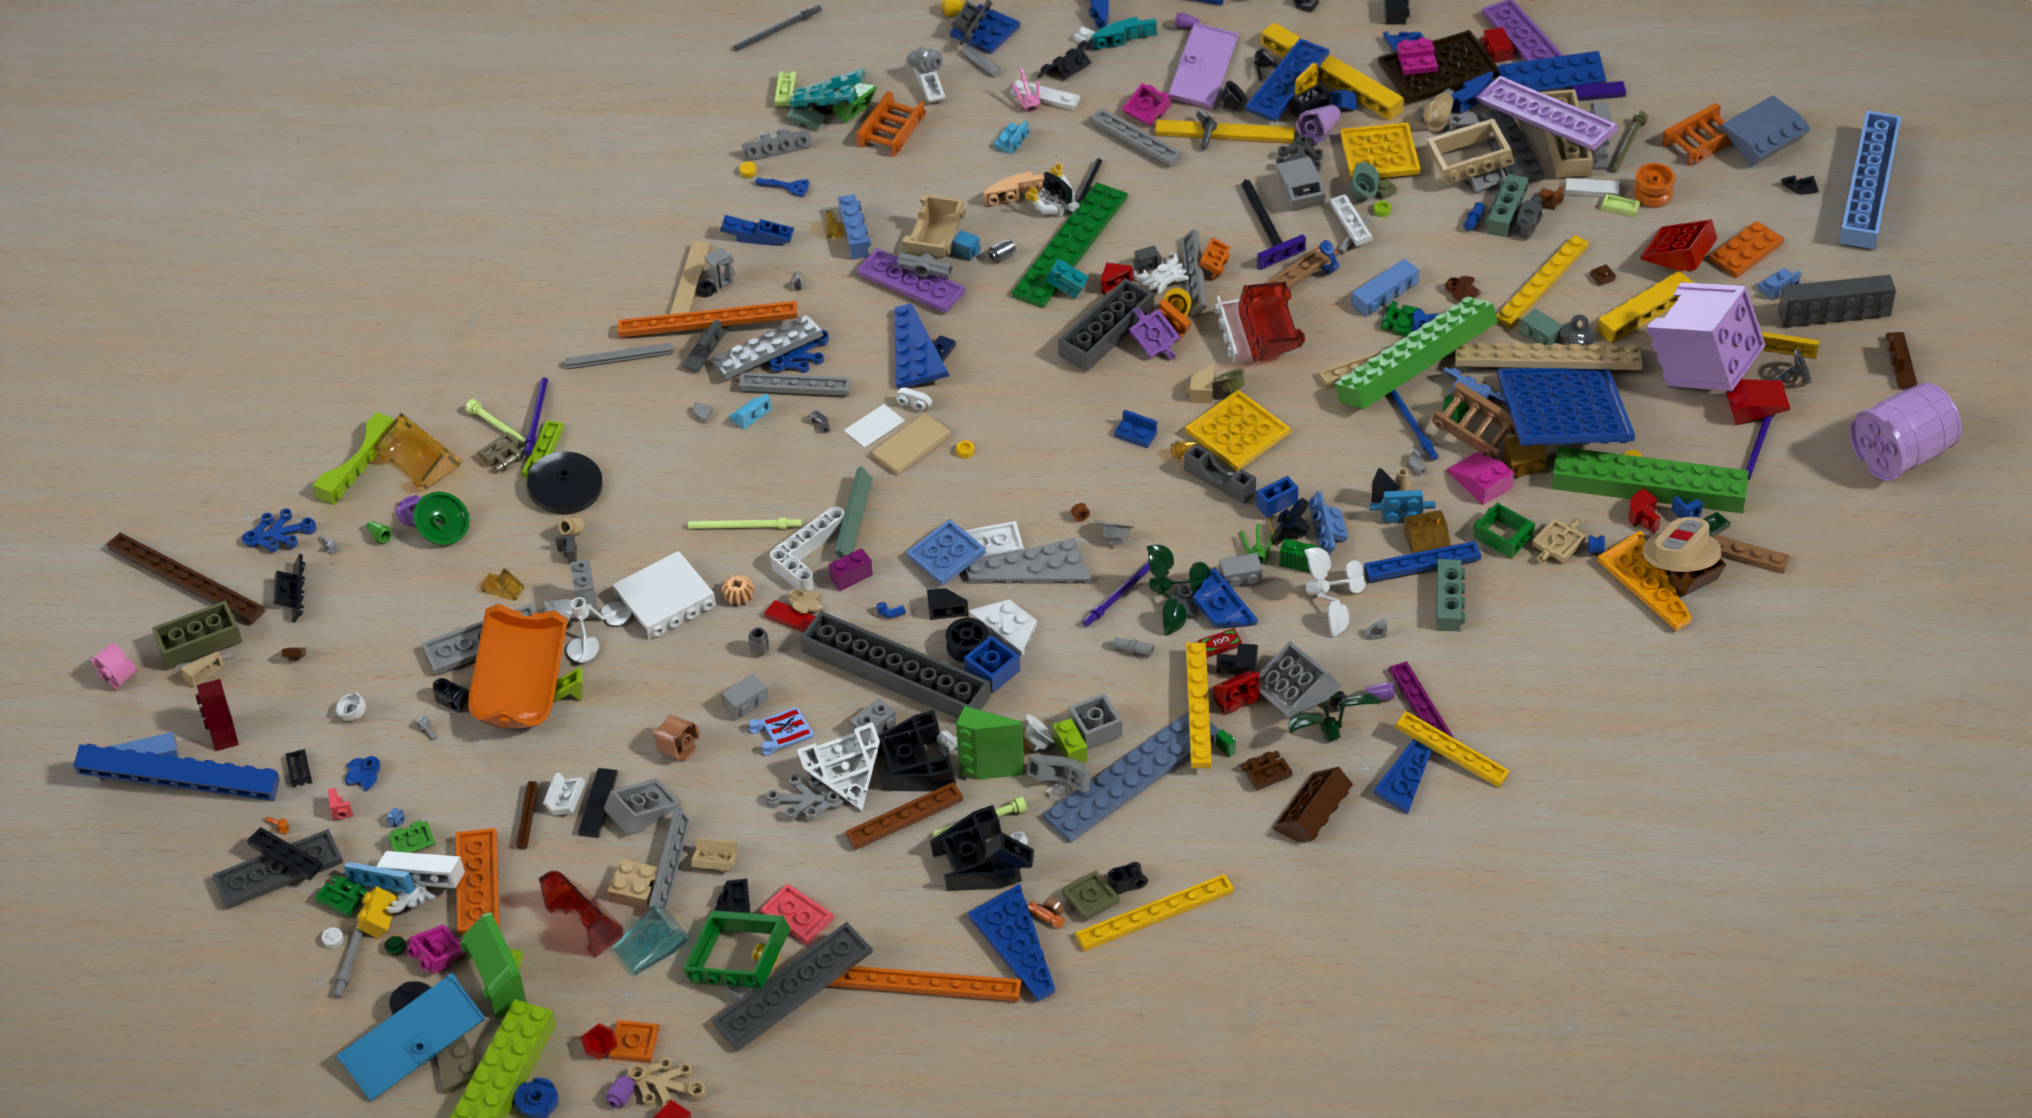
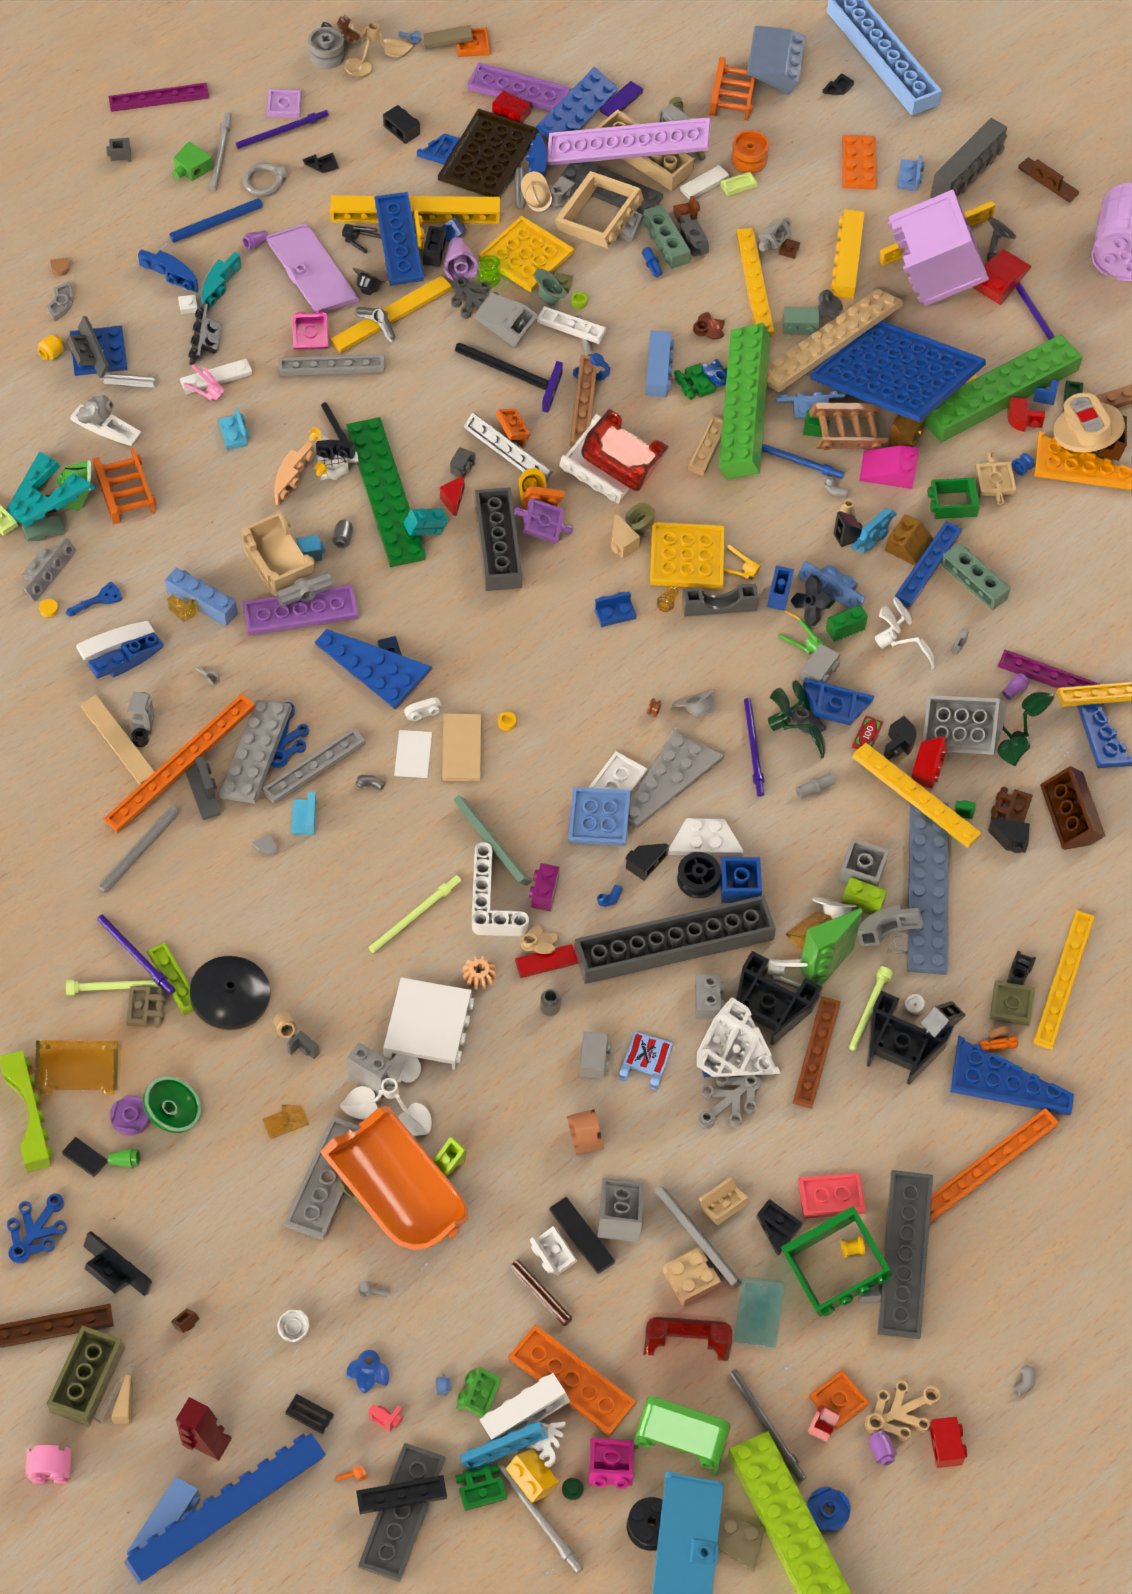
camera: 50 degrees left, 10 degrees up
(330, 546) = (98, 1202): light grey hand -> none
(332, 938) = (515, 1528): white tile -> none
(357, 513) = (84, 1157): none -> black tile
(450, 694) = (363, 1247): black piece -> none
(553, 1046) = (789, 1459): none -> dark grey bar
(755, 212) = (112, 640): none -> white slope
(1163, 275) = (488, 468): white animal -> none
(1241, 787) = (1010, 834): none -> black slope
(1275, 469) = (750, 567): none -> yellow plant
(1332, 144) = (489, 270): none -> clear neon green wheel
(1417, 56) = (469, 156): dark pink plate -> none
(1586, 256) = (774, 234): none -> light grey piece
(1681, 245) = (822, 188): red slope -> none

